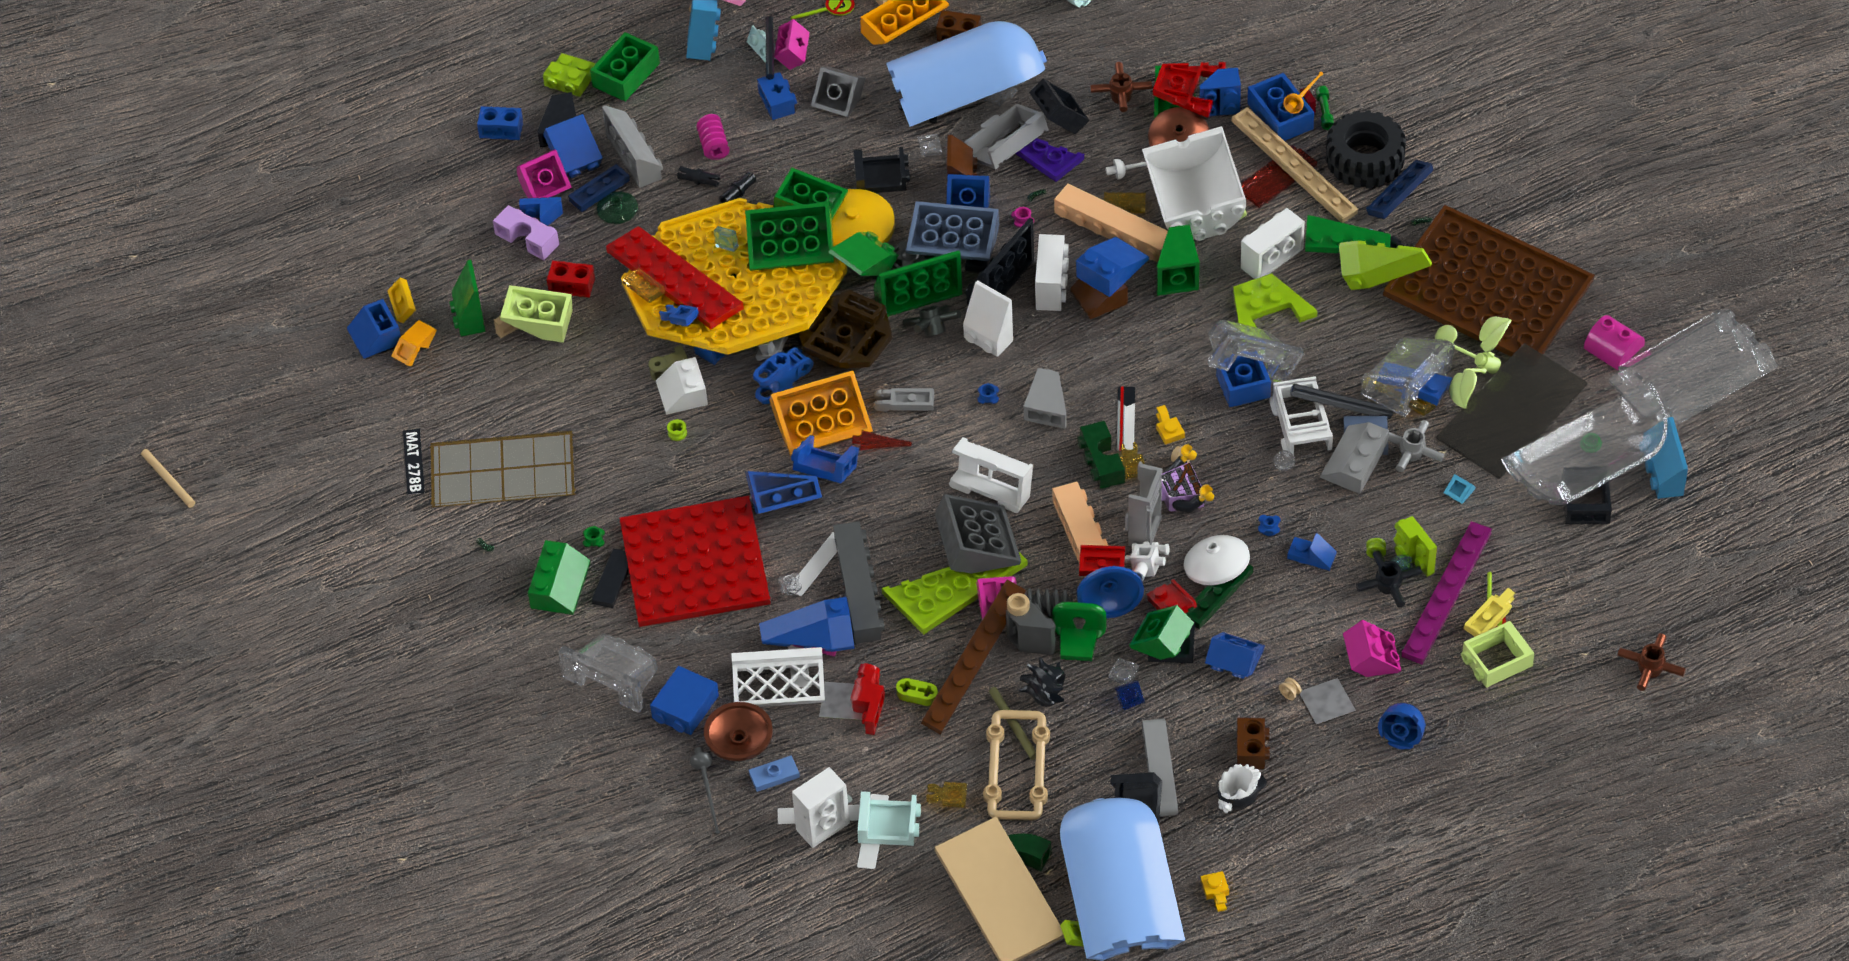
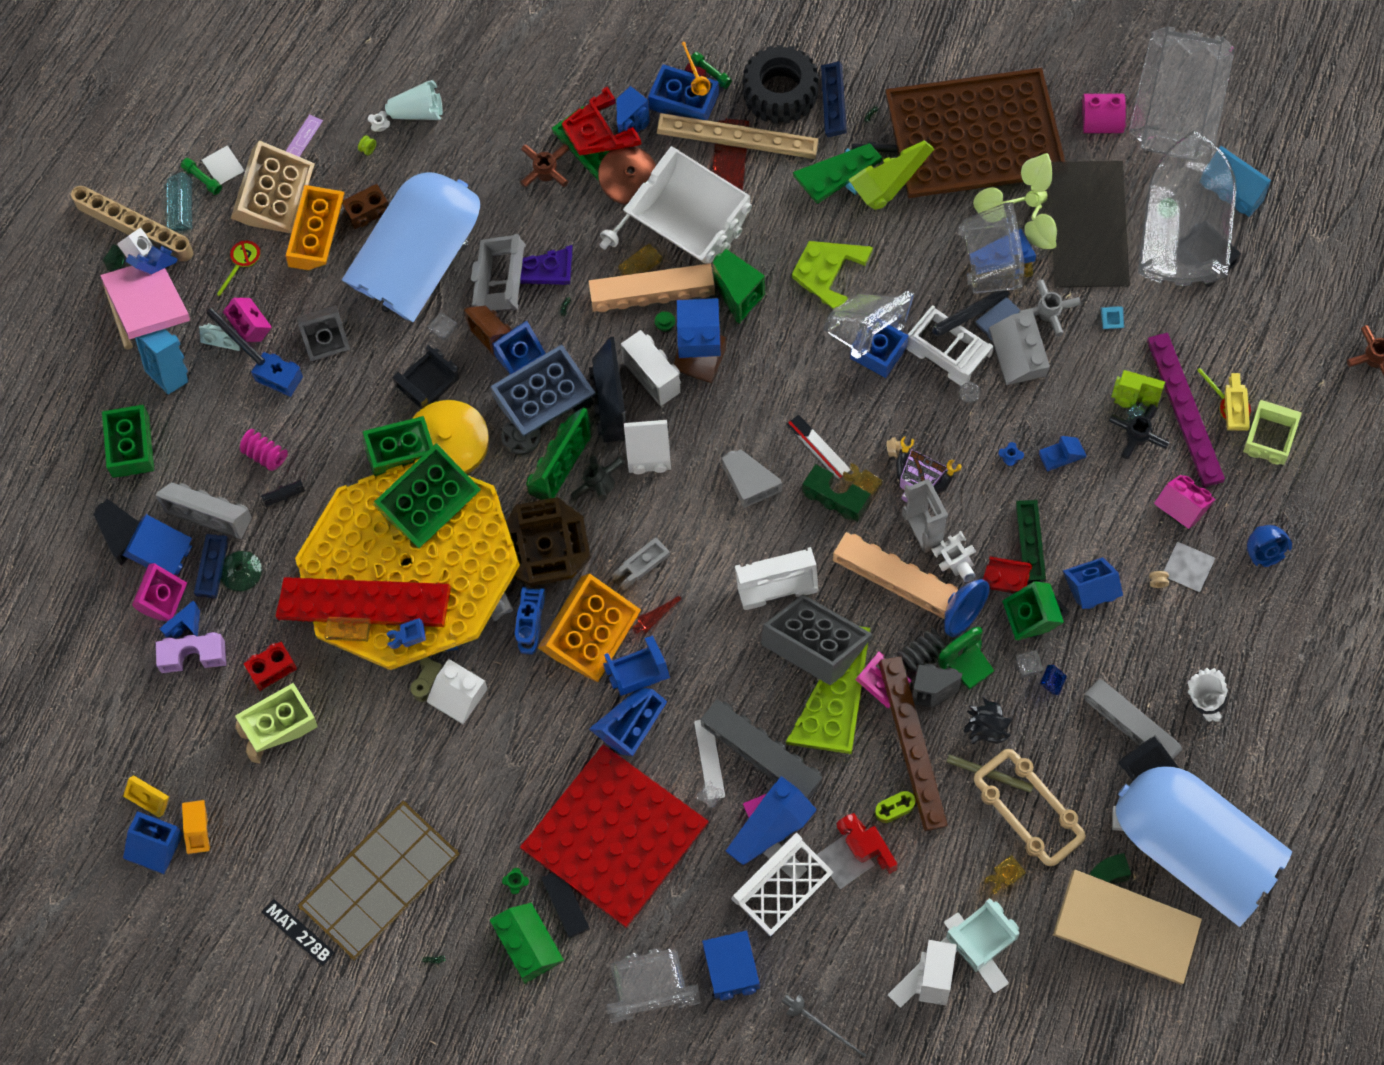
camera: 40 degrees left, 15 degrees up
(467, 303) = (211, 757): green slope -> none
(500, 123) = (72, 574): blue brick -> none
(568, 74) = (83, 481): lime plate -> none
(676, 435) = (483, 727): lime bush -> none
(725, 238) = (372, 536): clear light blue plate -> none
(737, 722) = (807, 943): copper dish -> none
(738, 188) = (325, 480): black pin -> none
(774, 773) = (857, 968): medium blue plate -> none
(865, 254) = (496, 463): green slope -> none
(988, 394) = (698, 502): blue plate -> none
(1018, 604) = (920, 677): tan tile -> none
(1021, 215) = (575, 329): dark pink plate -> none
(1059, 106) = (514, 218): black window -> none
(1072, 933) = (1207, 913): lime tile -> none
(1099, 556) = (935, 586): red plate -> none
(1168, 429) = (860, 431): yellow plate -> none
(1216, 560) = (1007, 526): white dish -> none
(1216, 888) = (1264, 787): yellow plate -> none
(1253, 742) = (1172, 650): reddish brown brick -> none
(1272, 244) = (791, 217): white brick -> none
(1375, 544) = (1105, 413): lime bush -> none

